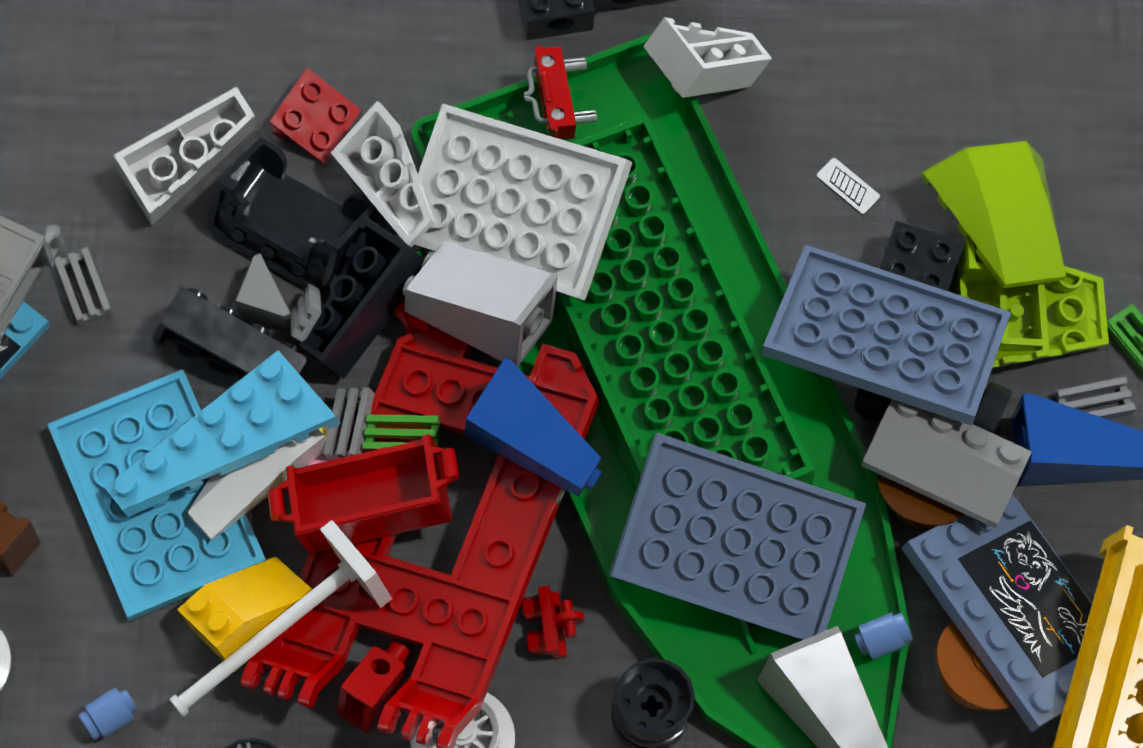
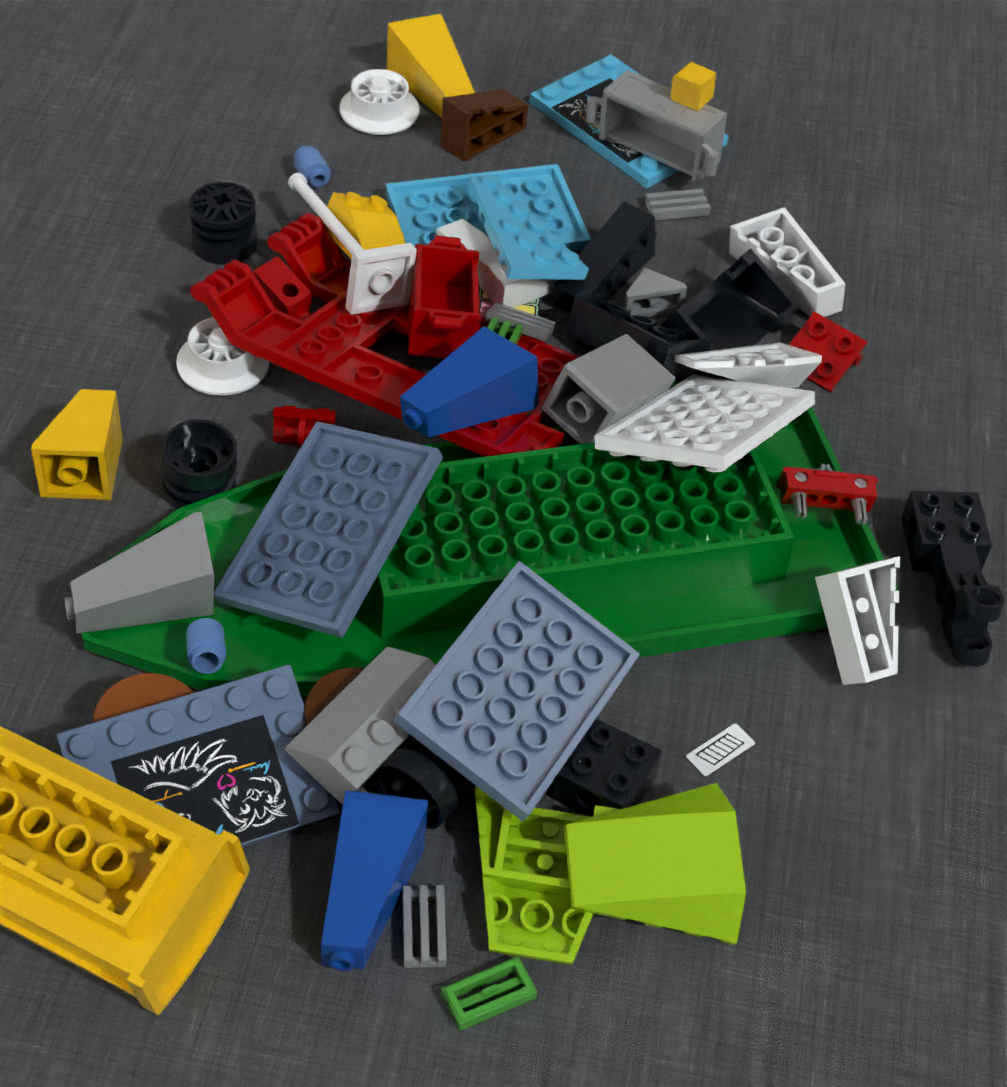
camera: 100 degrees right, 20 degrees down
(307, 314) = (622, 295): light grey tile -> none

